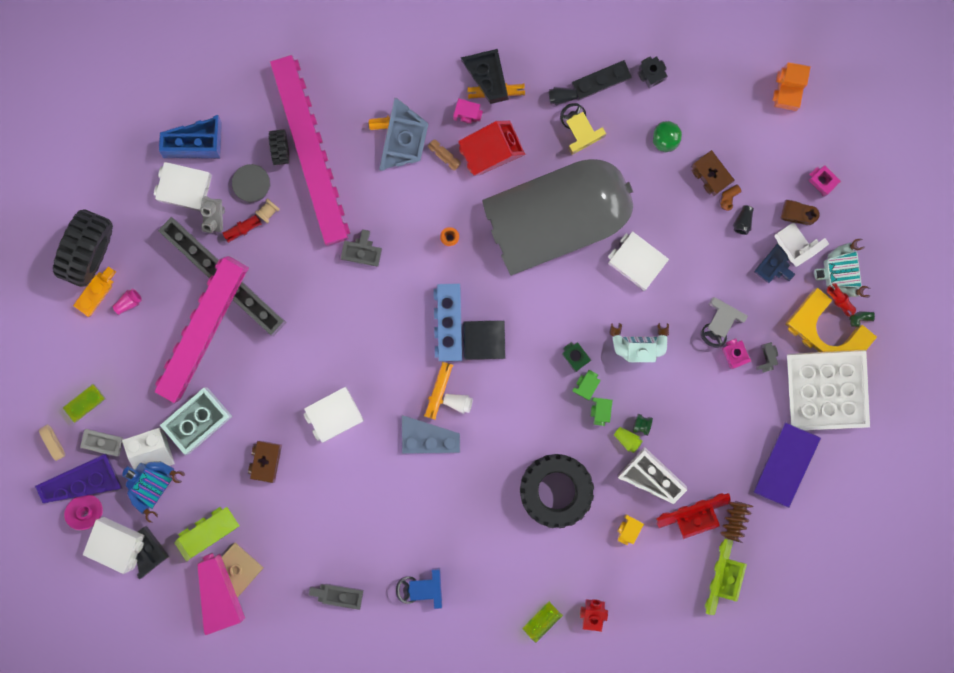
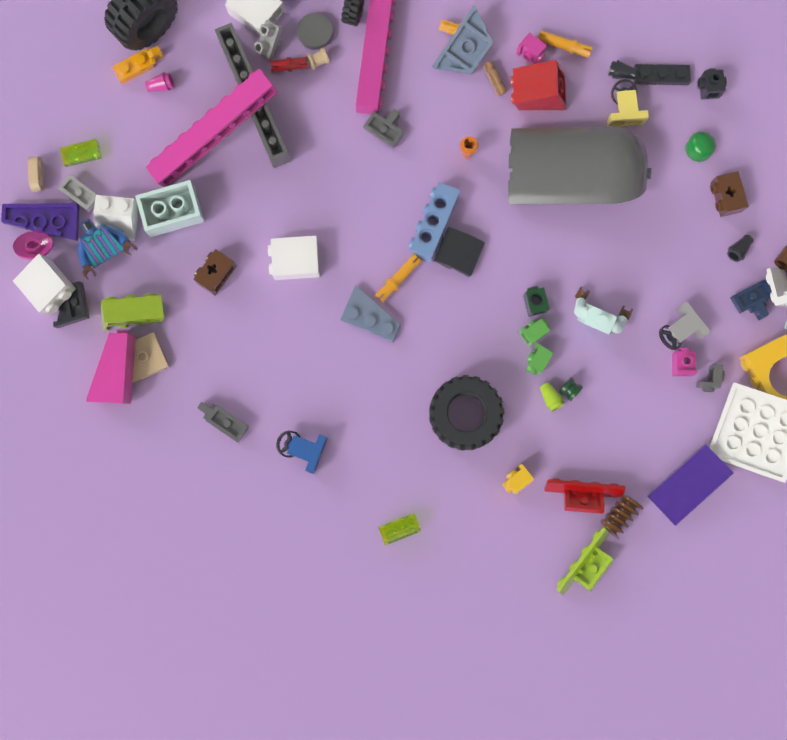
camera: 25 degrees right, 5 degrees down
(458, 402) = (411, 296): white cone -> none
(487, 74) = (563, 24): black wing -> none
(593, 615) = (450, 543): red brick -> none
(637, 260) = (628, 241): white brick -> none
(651, 475) = (561, 440): white wedge -> none
(727, 197) = (733, 221): dark orange arm -> none

